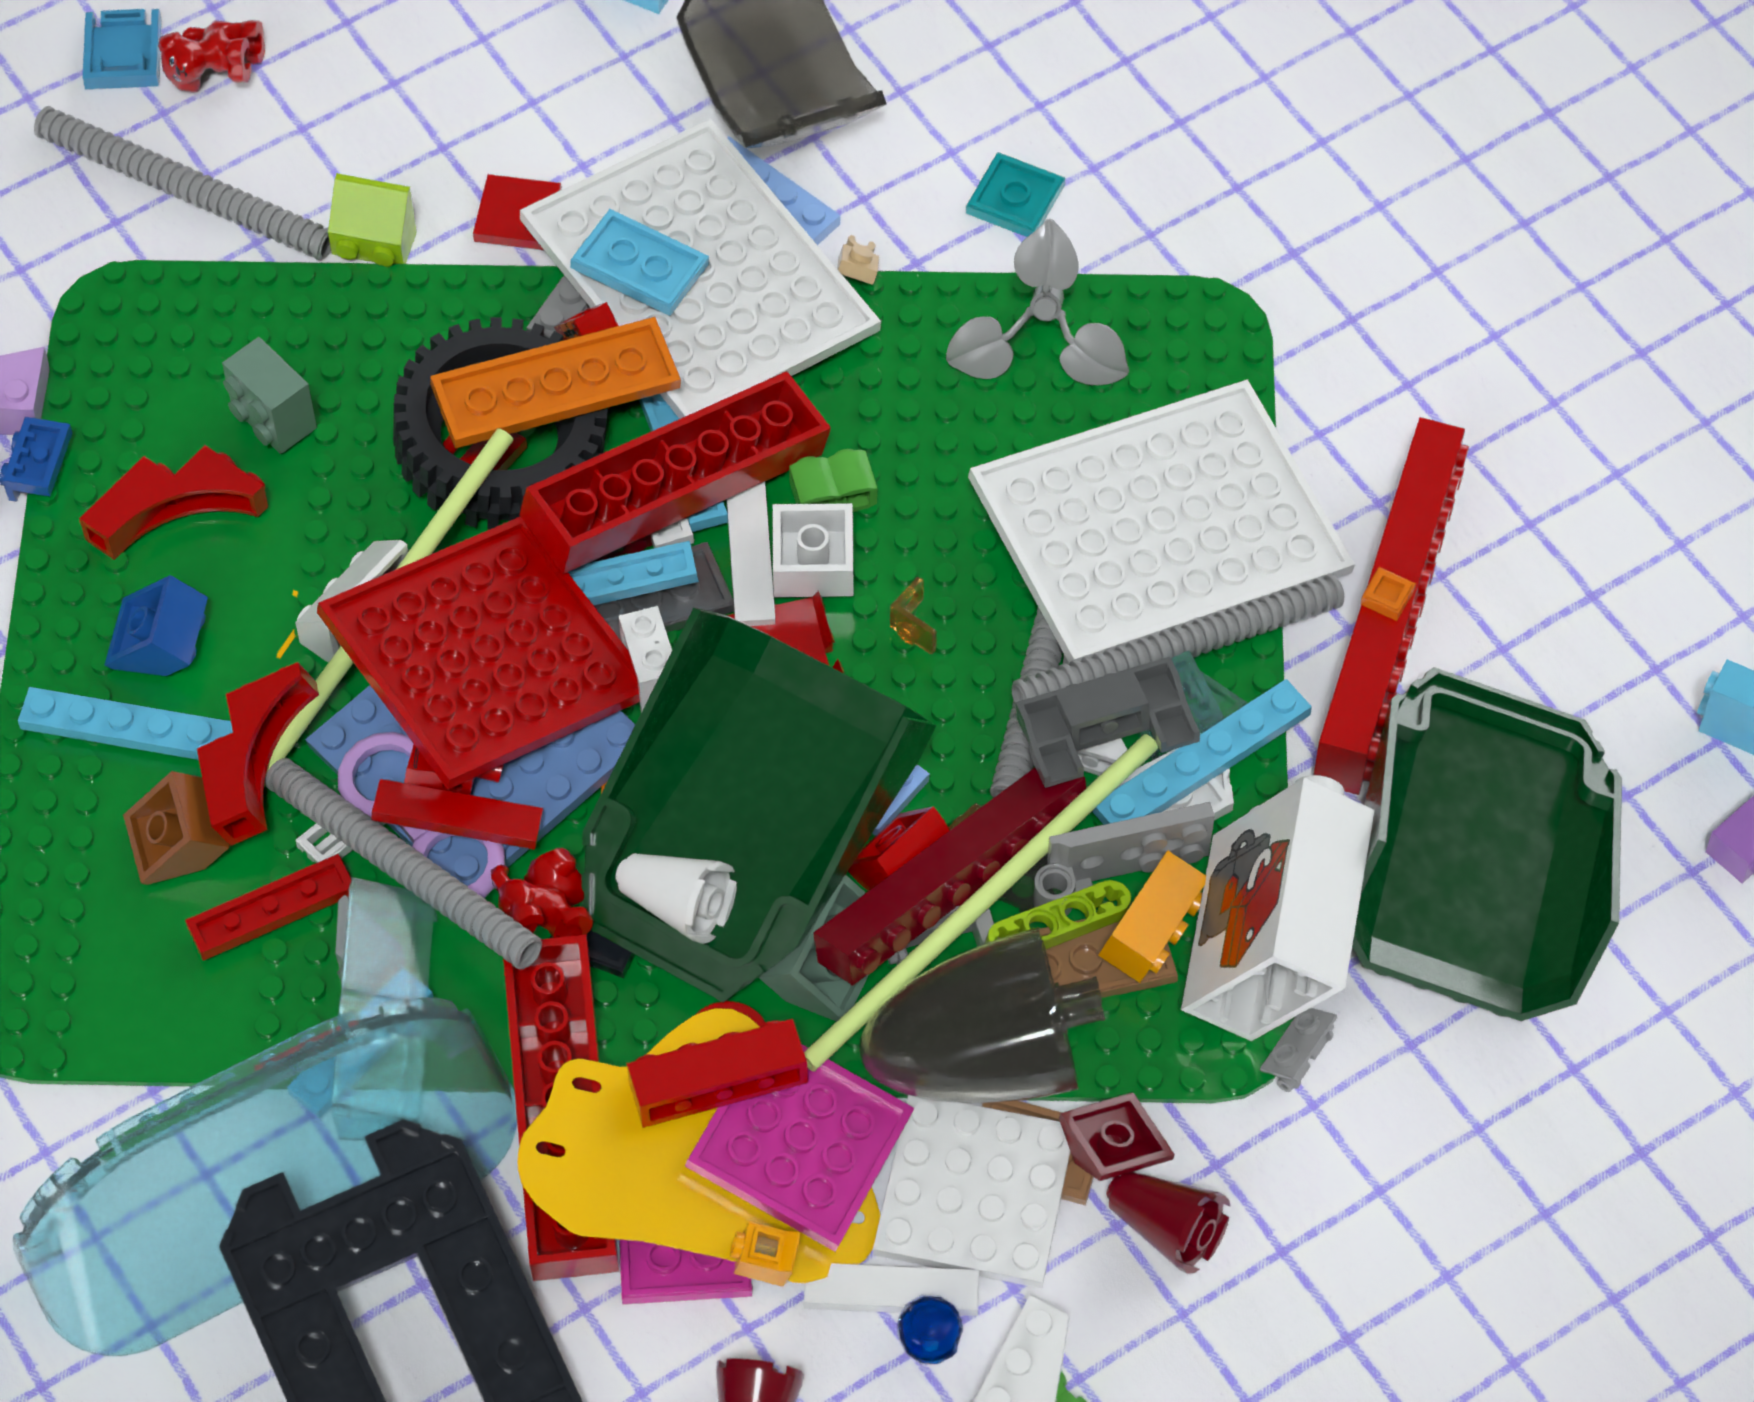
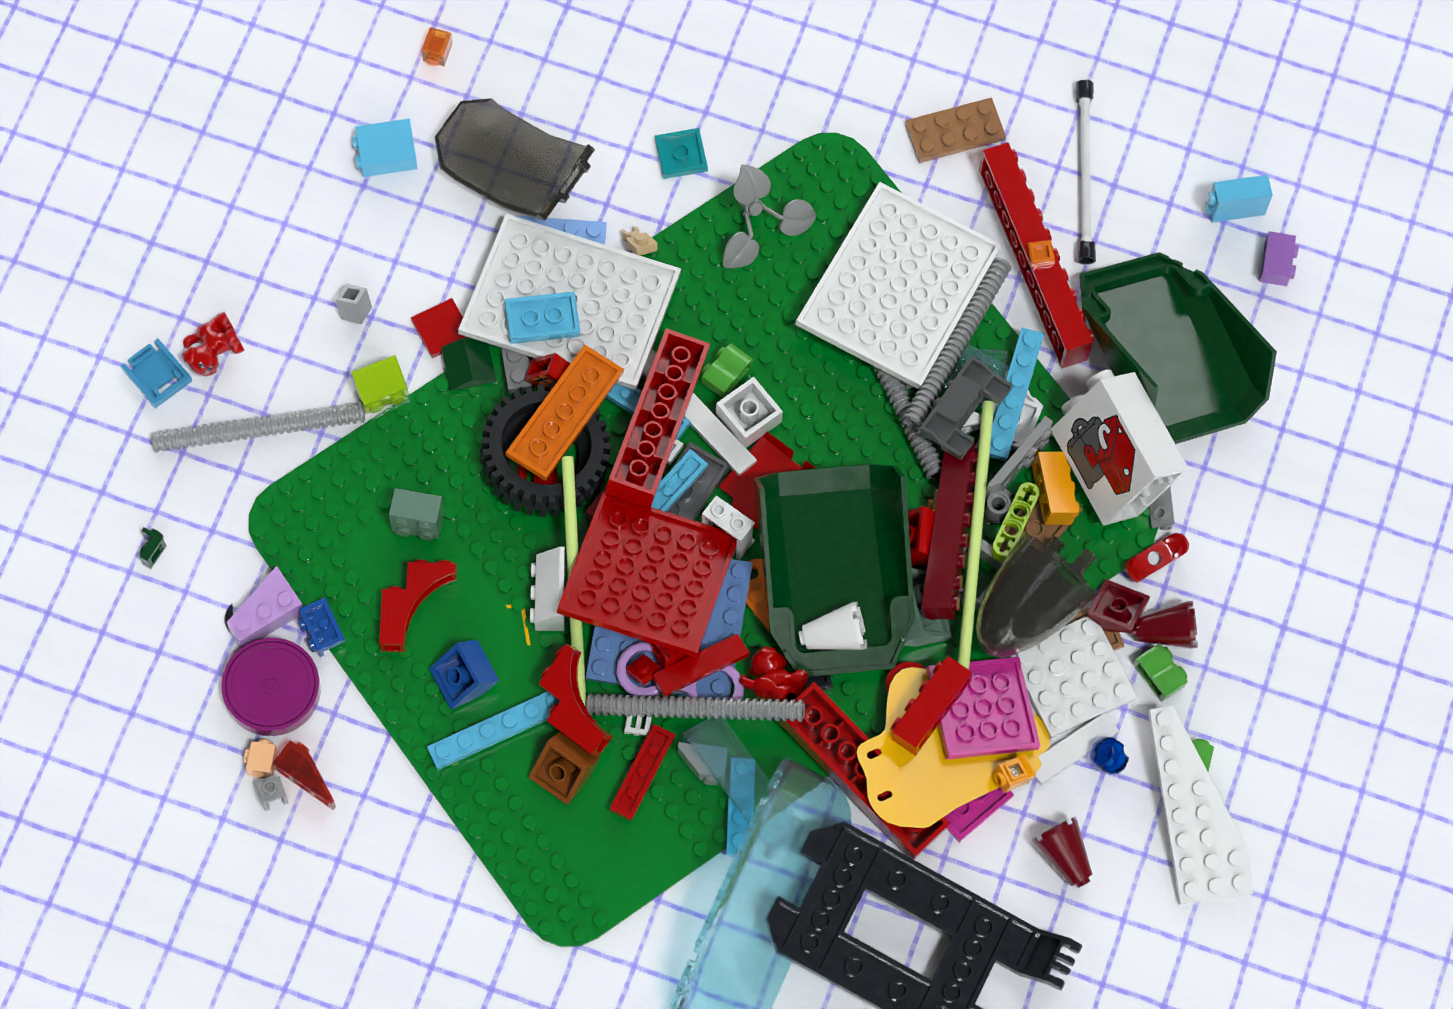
camera: 40 degrees left, 10 degrees up
(378, 766) = (643, 669): none -> red plate
(427, 110) = (354, 303): none -> light grey brick
(508, 270) = (468, 363): none -> dark green slope
(909, 626) = (823, 420): clear orange bracket -> none
(1106, 1271) = (1161, 672): none -> bright green brick
(1262, 1114) = (1168, 549): none -> red piece
(1416, 385) = (955, 130): none -> medium nougat plate
(1478, 647) = (1086, 249): none -> white hose

